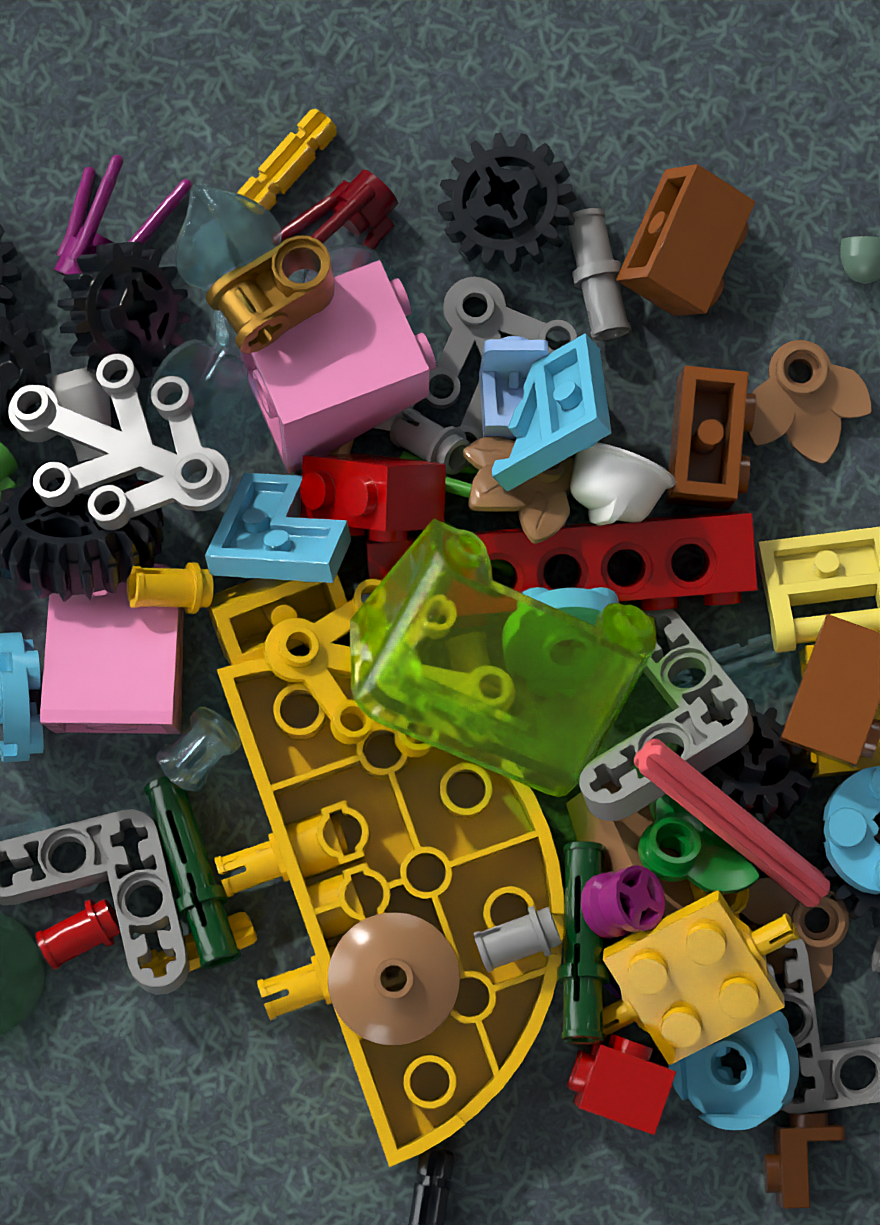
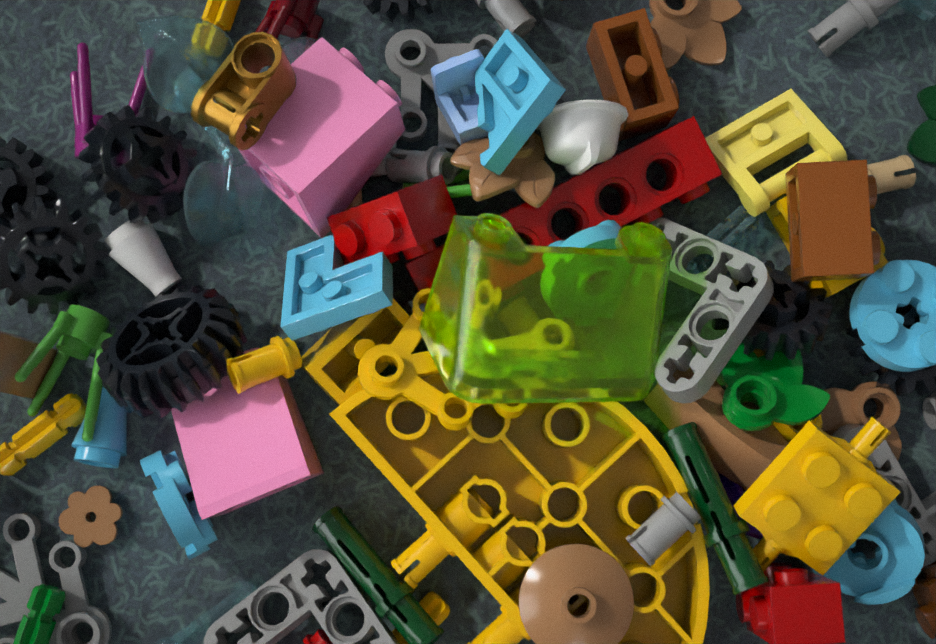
camera: 20 degrees left, 0 degrees up
(124, 450) = (181, 270): plant -> none
(198, 749) = (341, 481): clear light blue bush -> none
(623, 902) = (734, 462): magenta wheel -> none
(731, 822) = (788, 361): coral axle -> none

